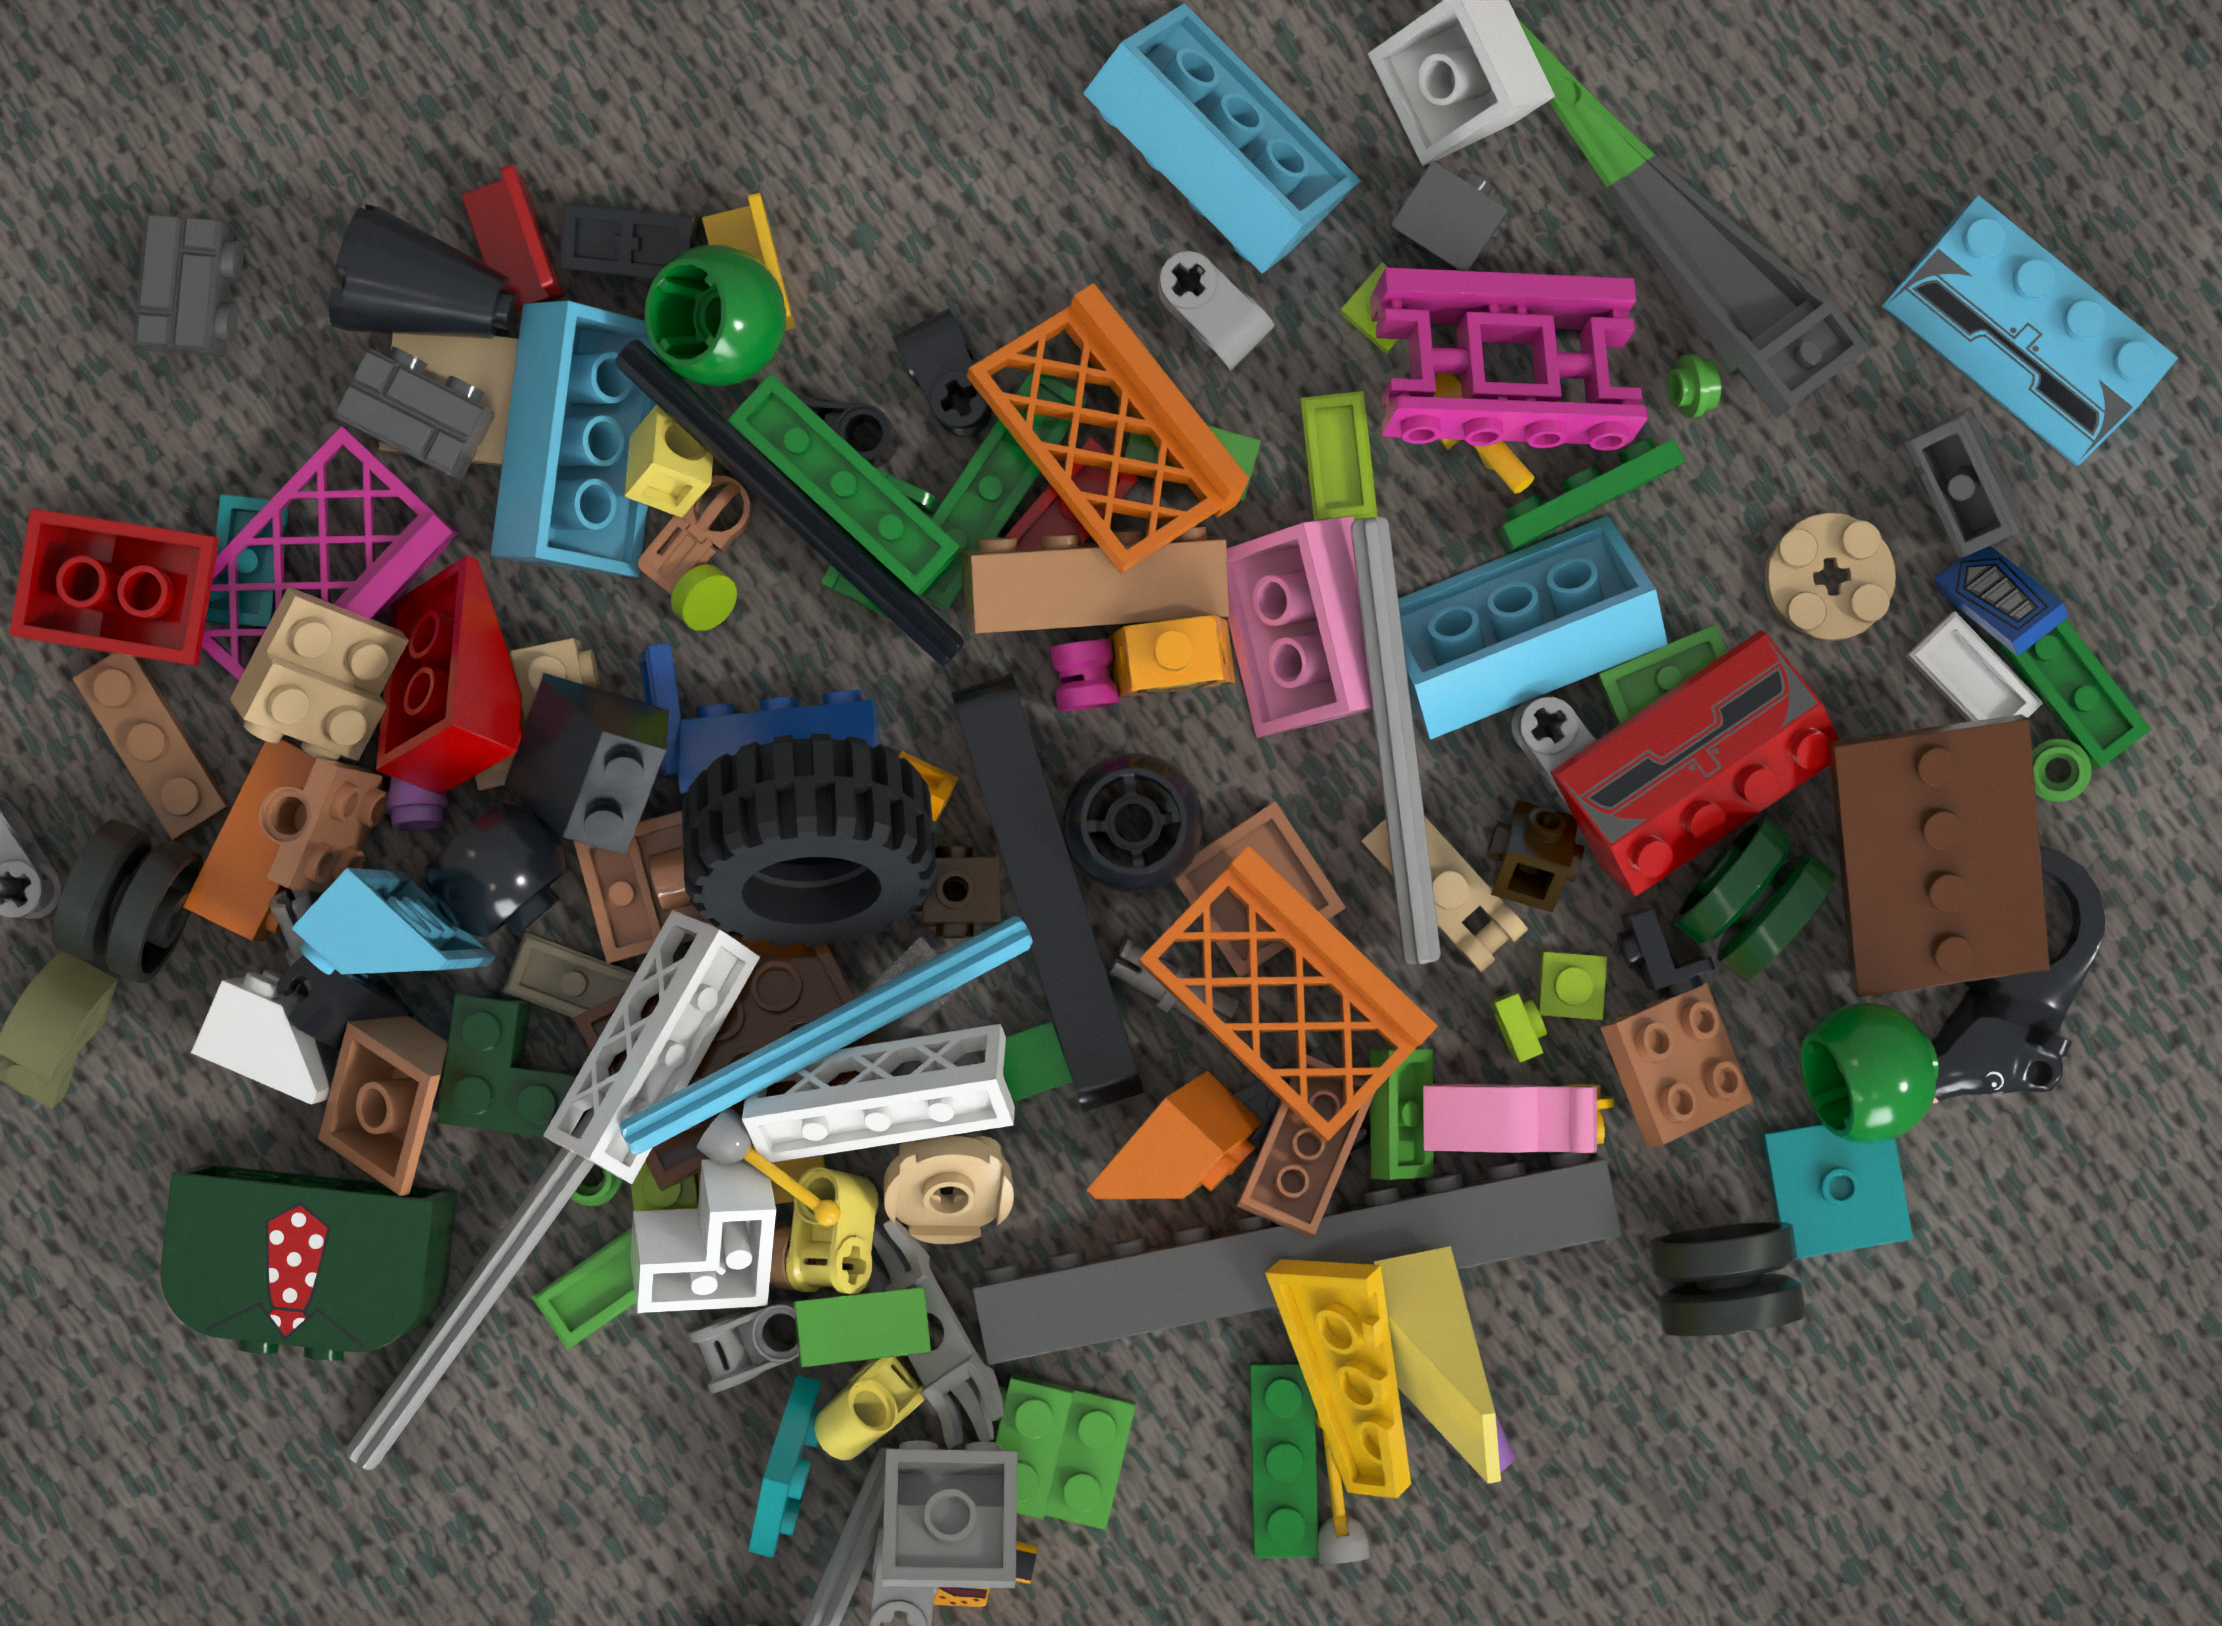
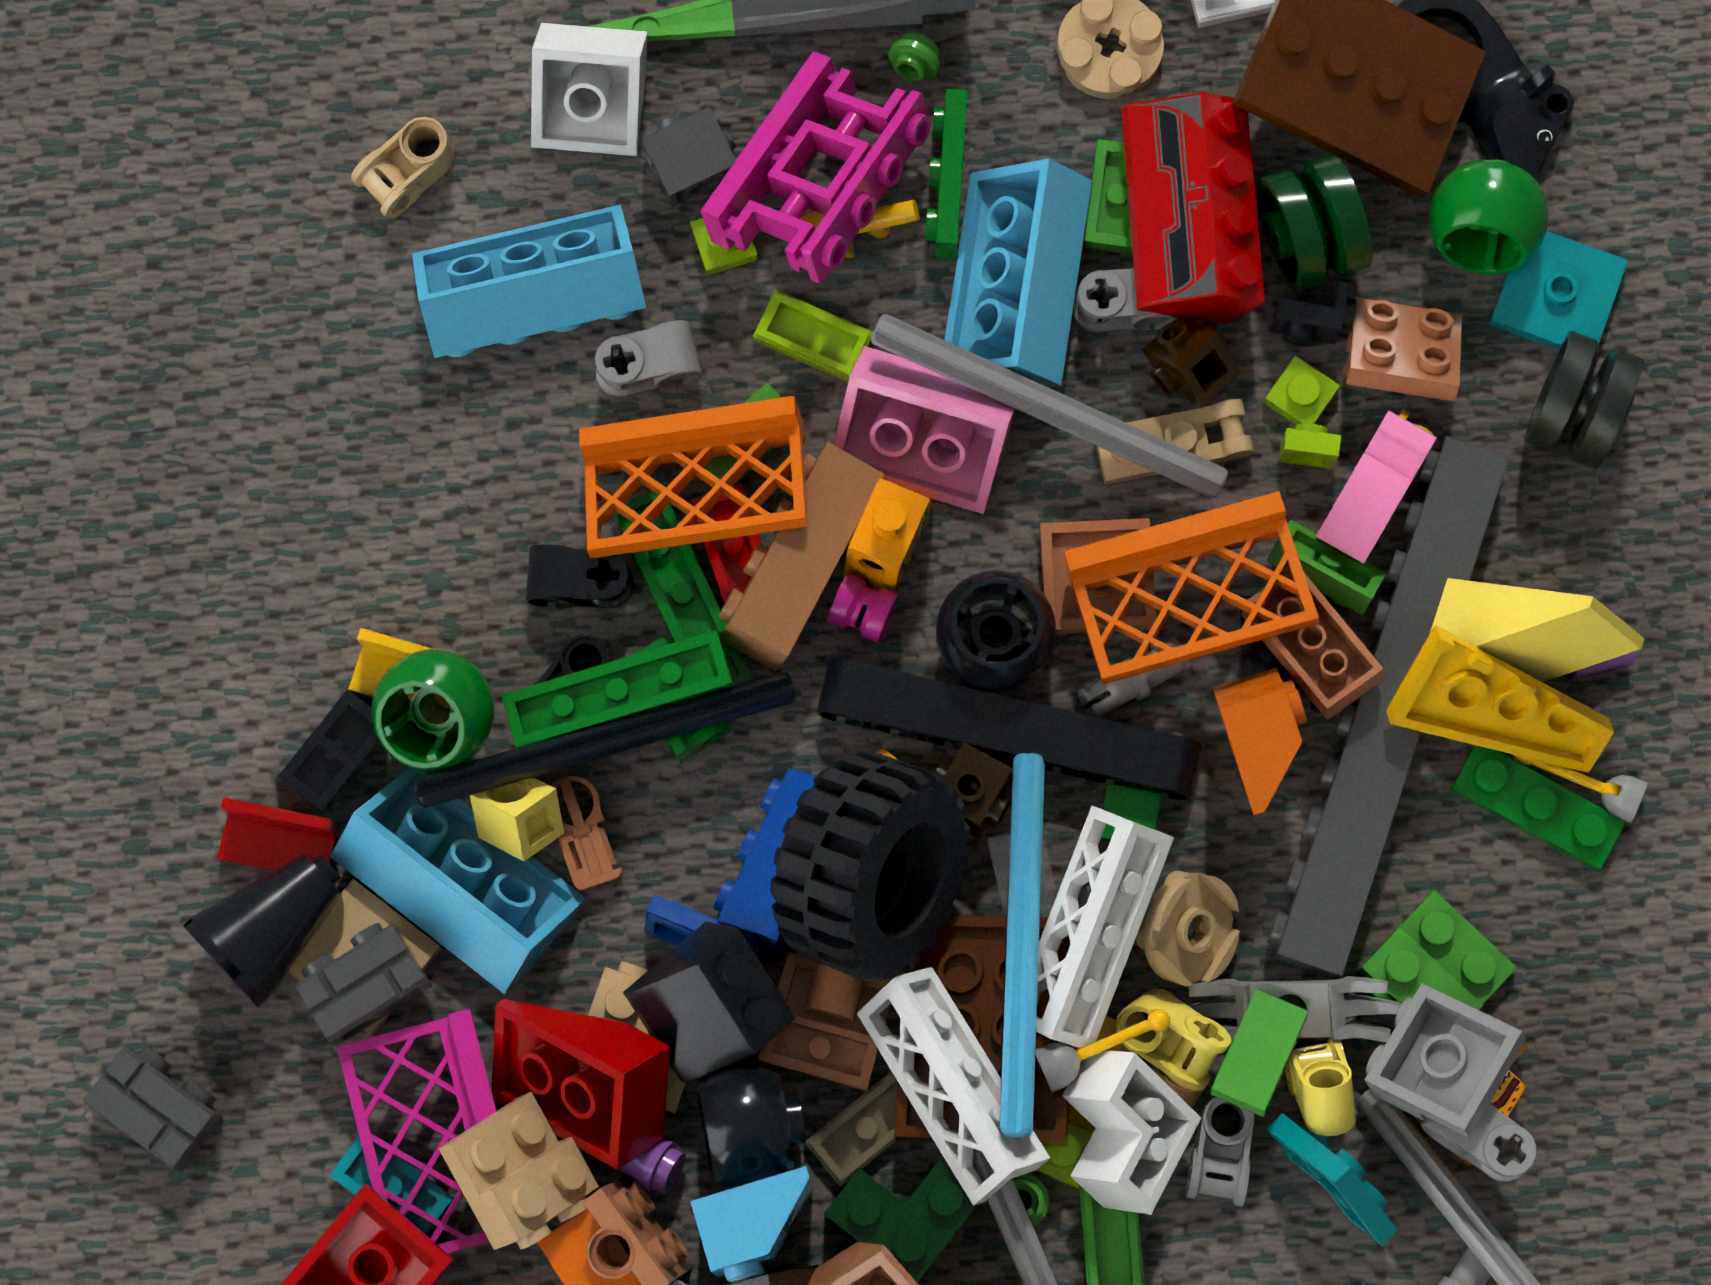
camera: 60 degrees left, 10 degrees down
(703, 597) = (633, 854): lime tile -> none

